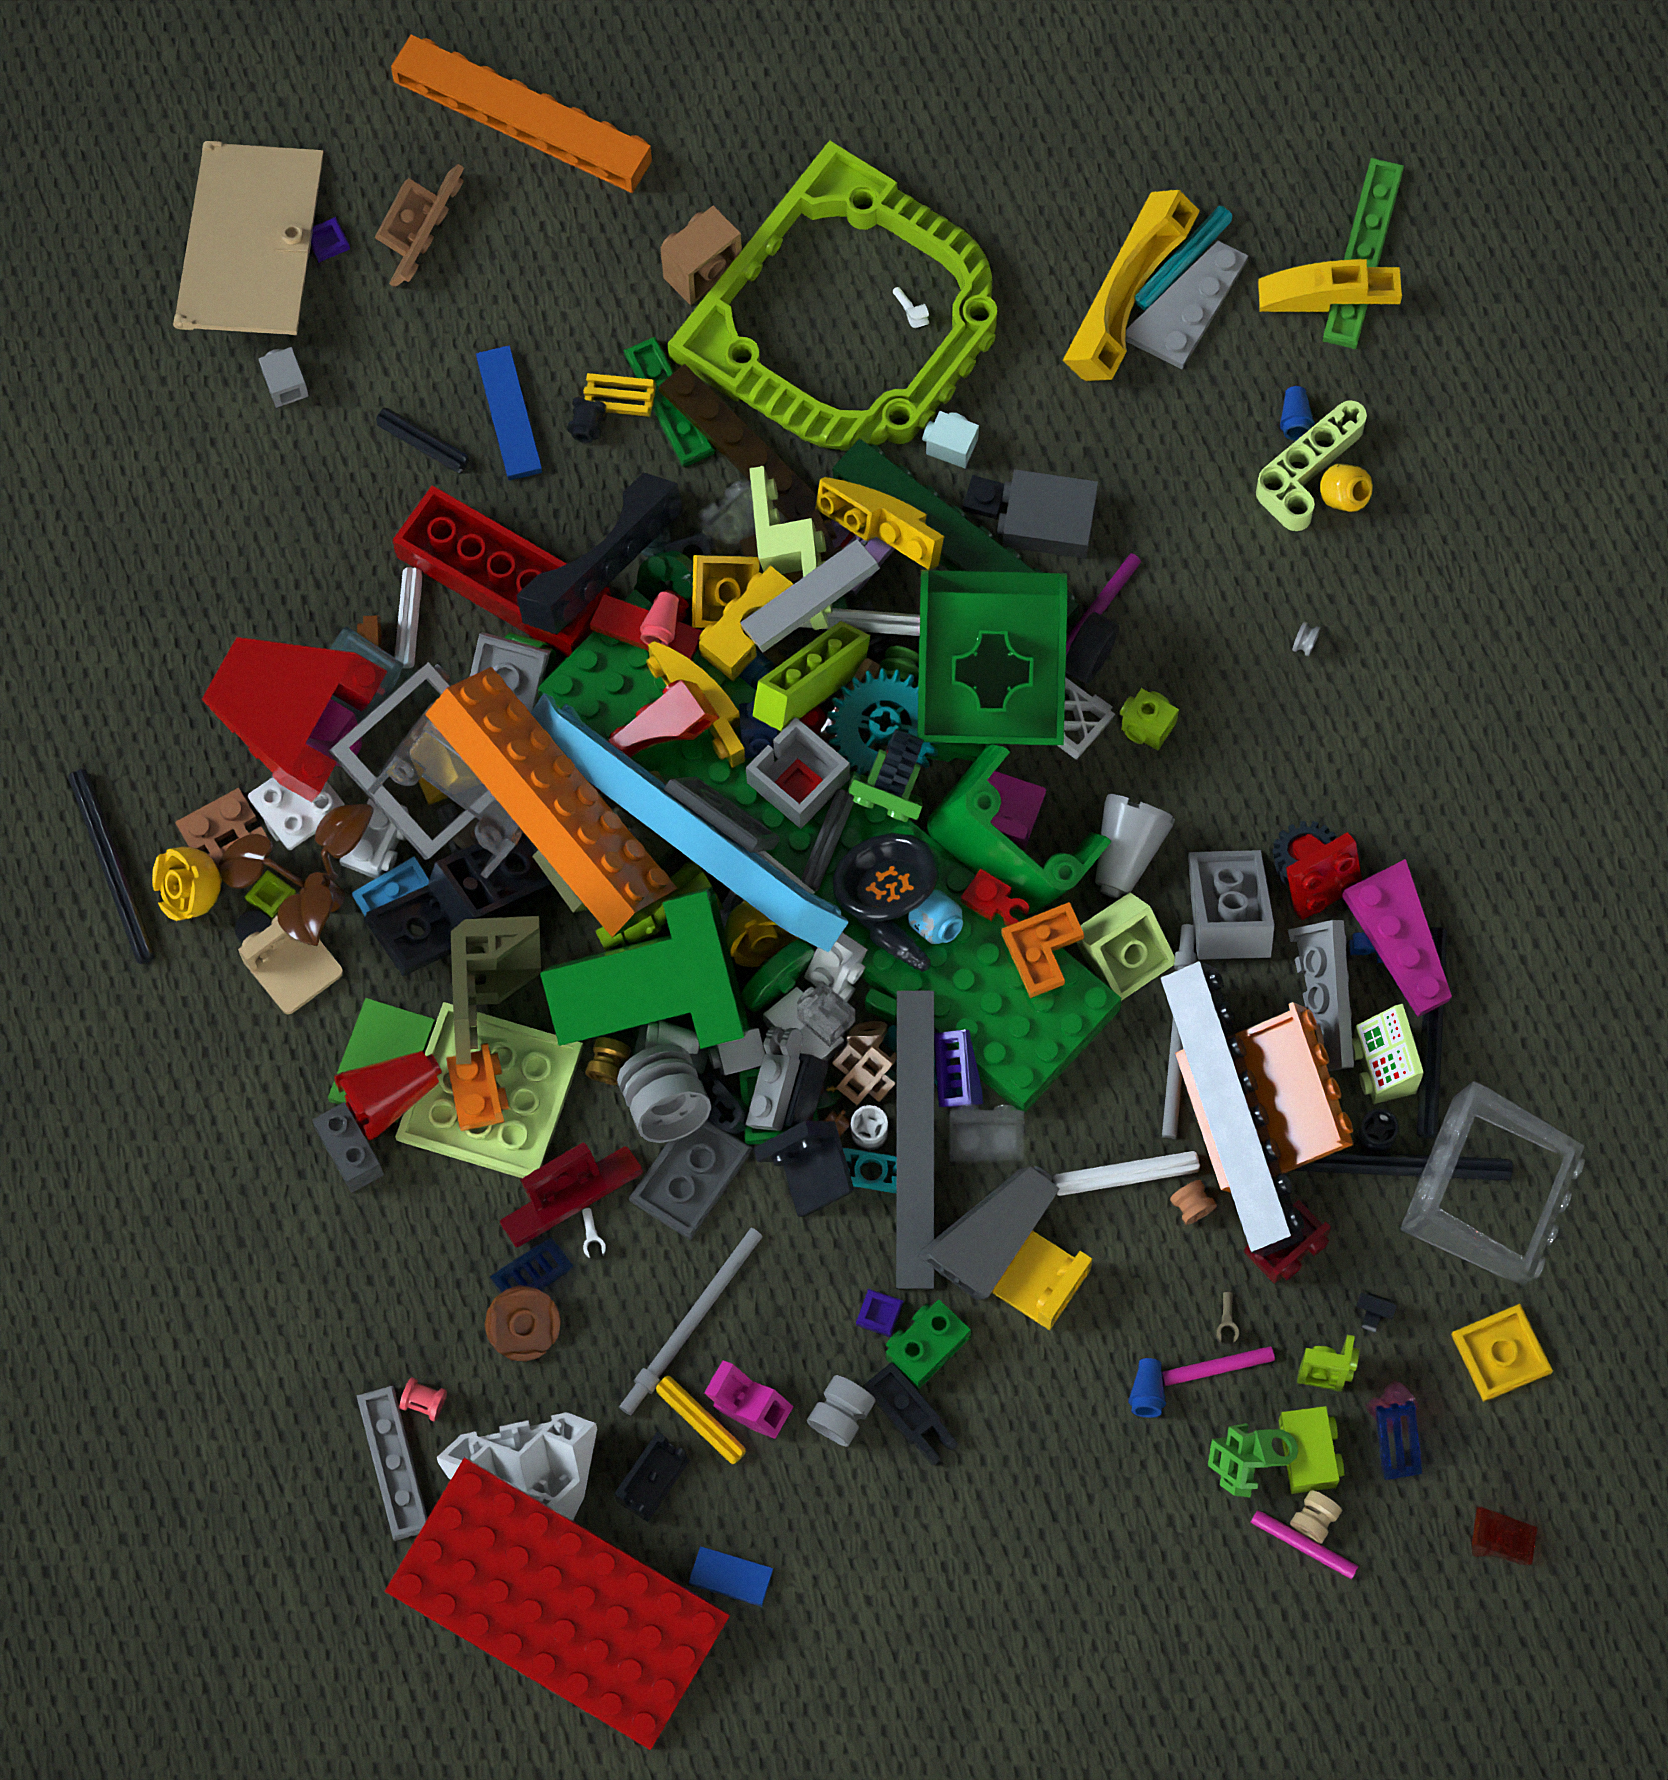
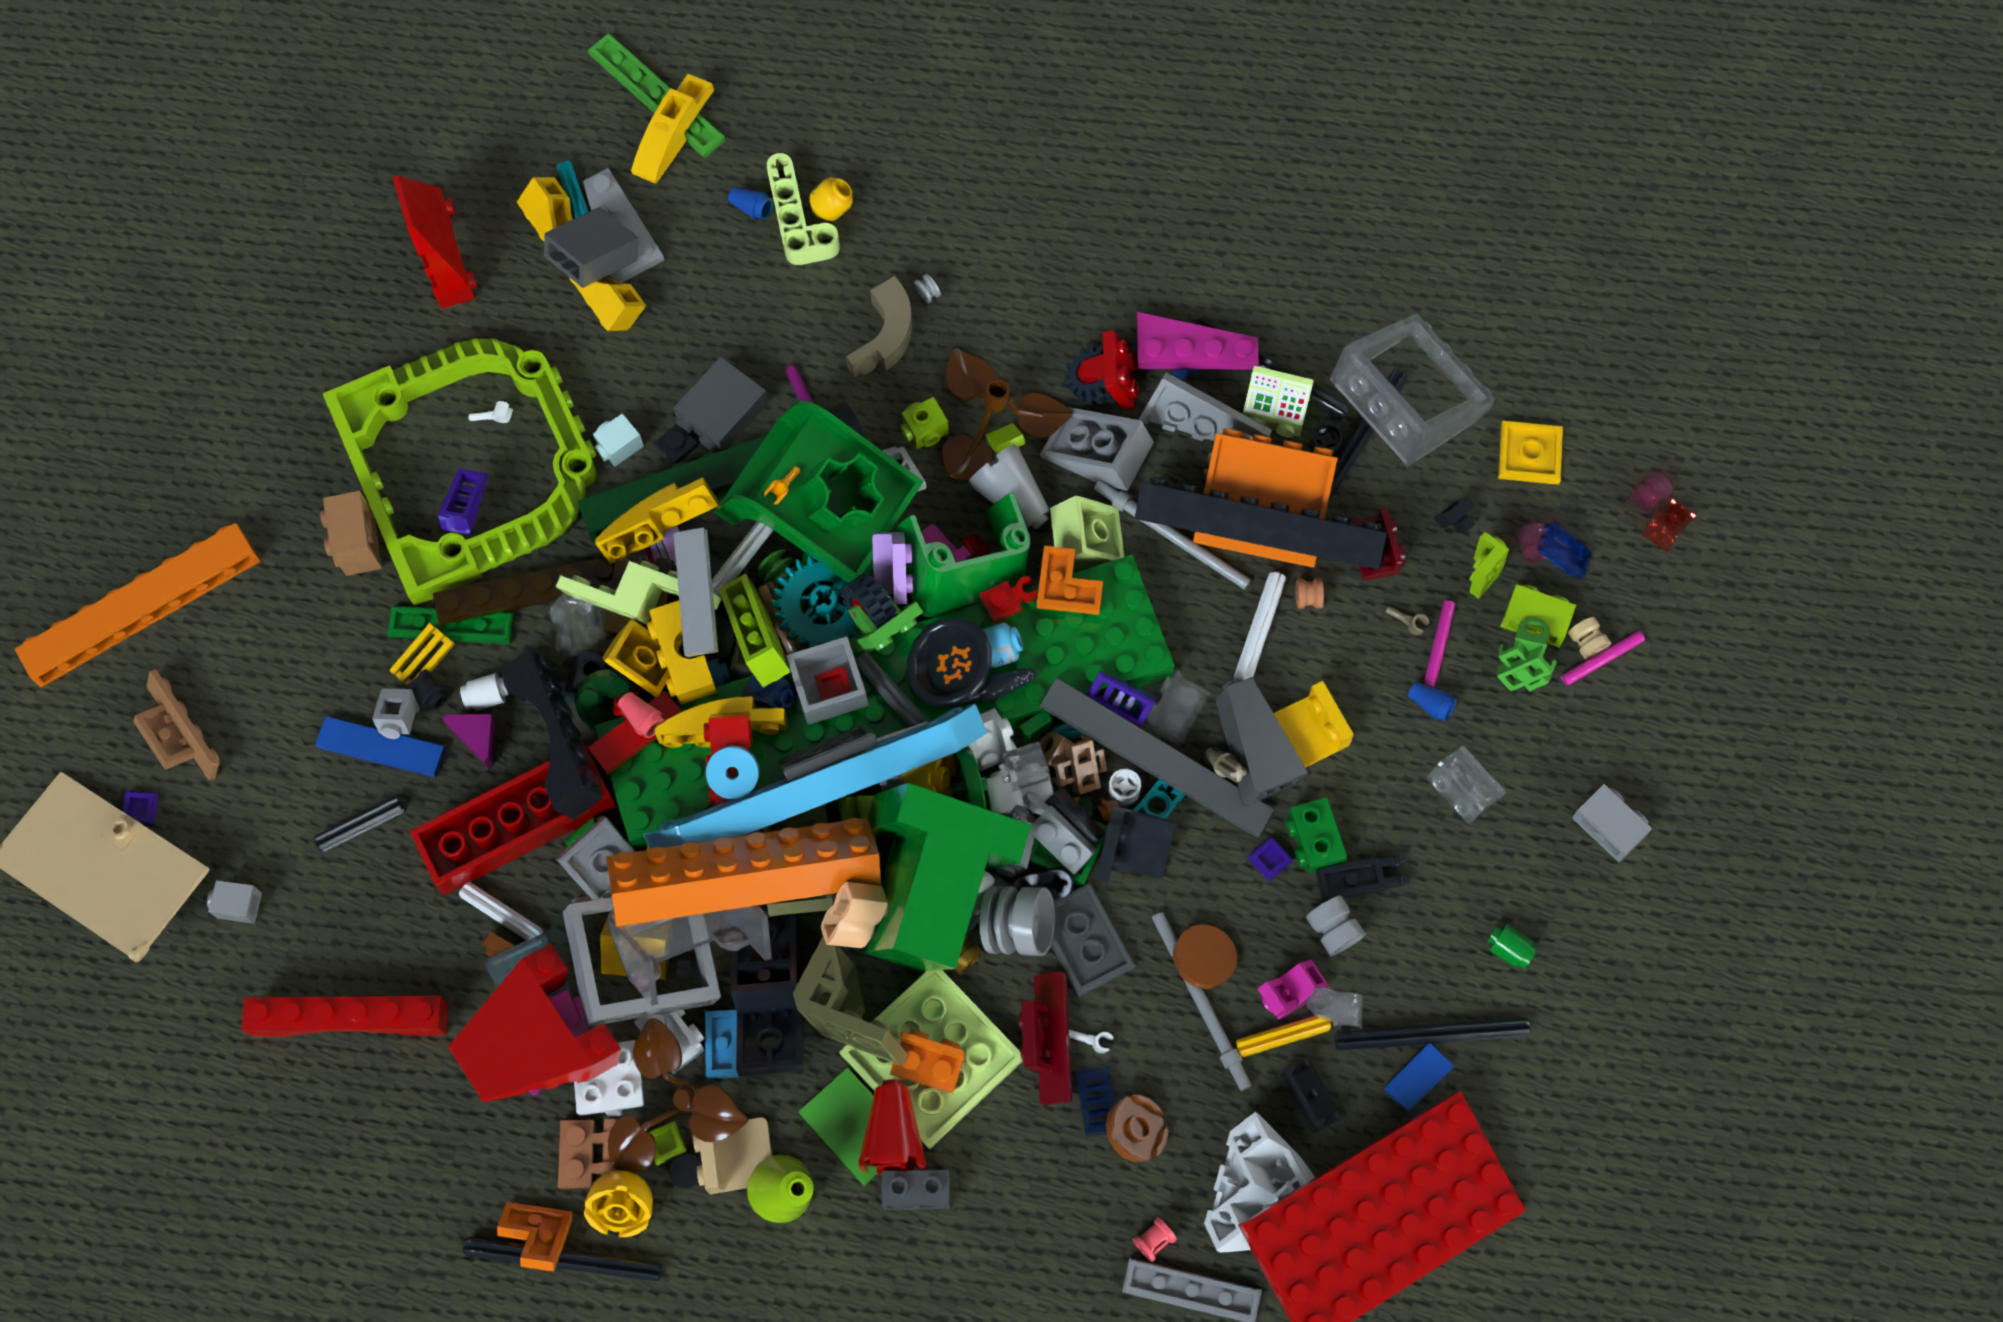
camera: 60 degrees left, 0 degrees up
(126, 830) = (541, 1227): none -> orange plate
(230, 539) = (345, 1014): none -> red arch
(297, 1018) = (780, 1188): none -> lime cone
(546, 403) = (394, 718): none -> light grey brick
(568, 491) = (477, 733): none -> magenta slope
(570, 930) = (854, 915): none -> light nougat brick
(614, 470) = (484, 692): none -> white brick
(630, 732) = (728, 786): none -> medium azure piece
(737, 1299) = (1205, 956): none -> dark orange tile
(754, 1457) = (1337, 1007): none -> clear piece
(782, 347) = (461, 519): none -> dark purple slope
(785, 1567) = (1431, 1034): none -> black axle
(922, 1600) = (1511, 946): none -> green brick
(948, 1210) = (1224, 764): none -> dark tan axle
(951, 765) = (889, 564): none -> lavender bracket
(960, 609) = (780, 487): none -> light orange hand
(1042, 843) = (975, 545): none -> red plate
(1050, 133) = (431, 230): none -> red wedge
(1074, 1468) = (1465, 784): none -> clear bracket
(1115, 1638) = (1612, 822): none -> light grey brick
(1137, 289) = (591, 247): none -> dark grey brick
(1183, 808) = (1005, 437): none -> lime tile
(1230, 738) = (973, 376): none -> reddish brown plant
(1237, 634) = (891, 343): none -> dark tan arch
(1528, 1501) = (1651, 492): none -> clear pink wheel

